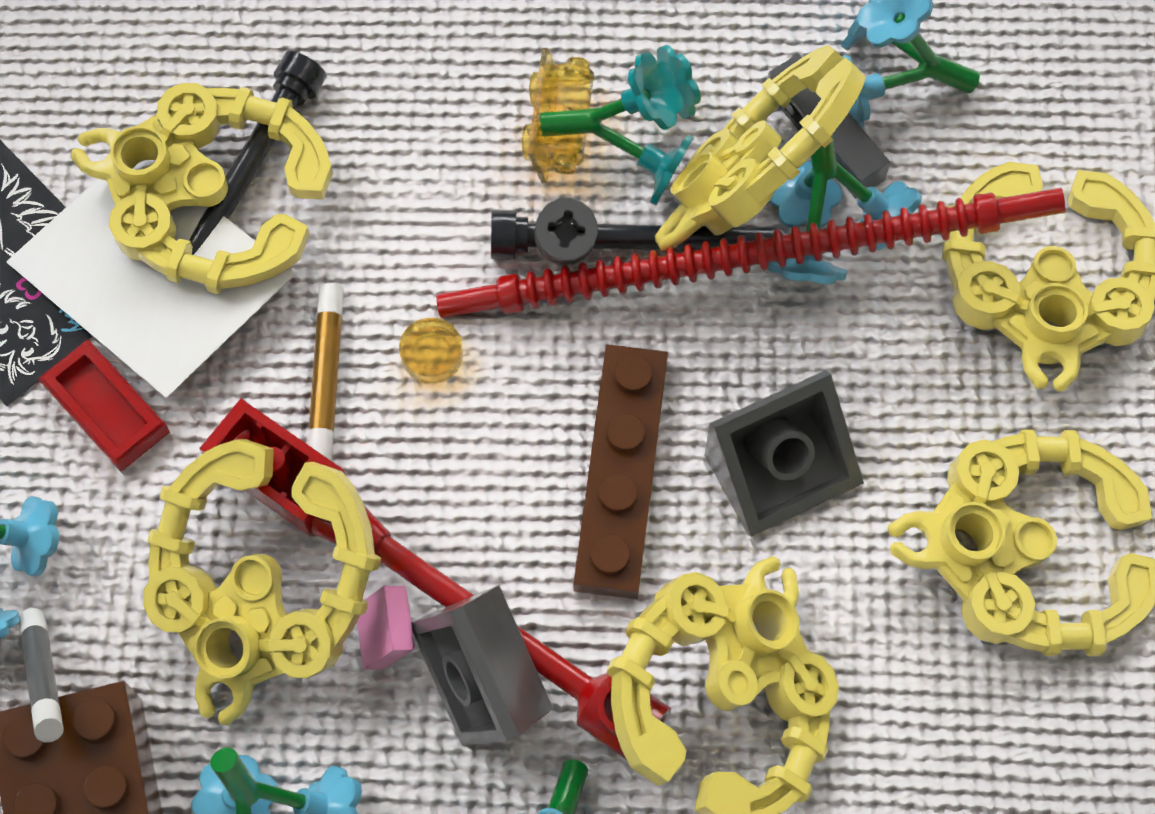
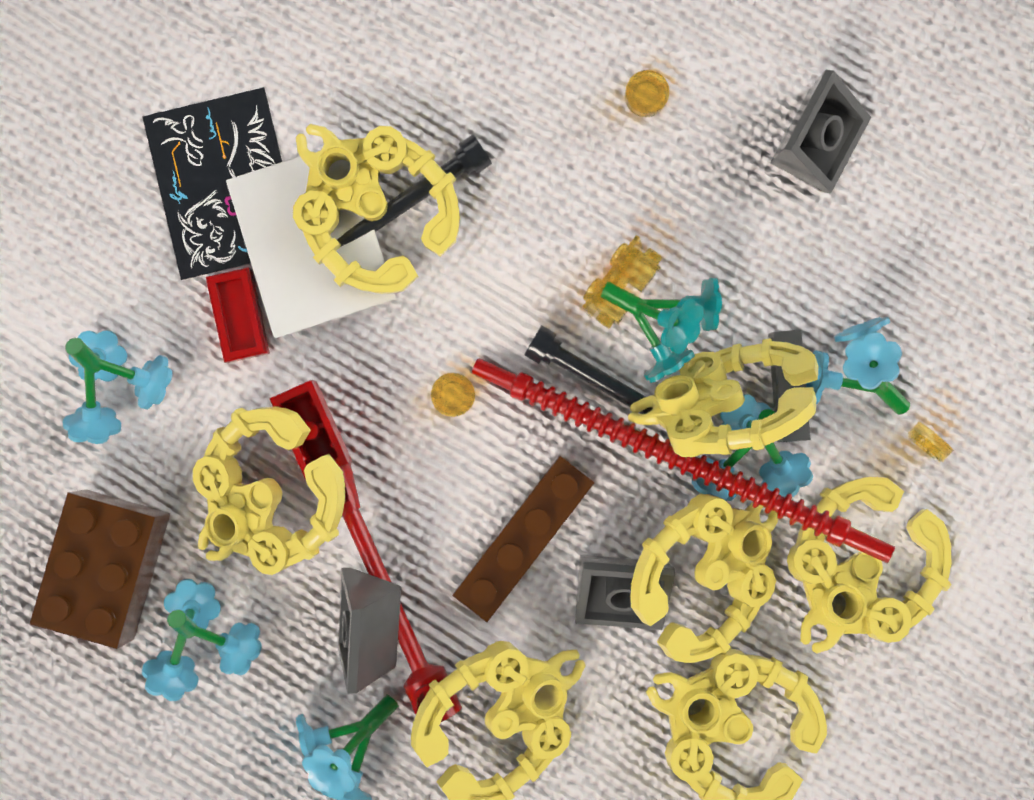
camera: 25 degrees right, 20 degrees up
(40, 676) = (109, 484): bar -> none
(325, 368) = (381, 372): pearl gold bar -> none
(385, 628) = (328, 564): bright pink tile -> none
(563, 243) = (579, 366): dark grey wheel -> none
(886, 331) = (733, 557): none -> light yellow piece
(1028, 94) = (930, 442): none -> clear yellow tile

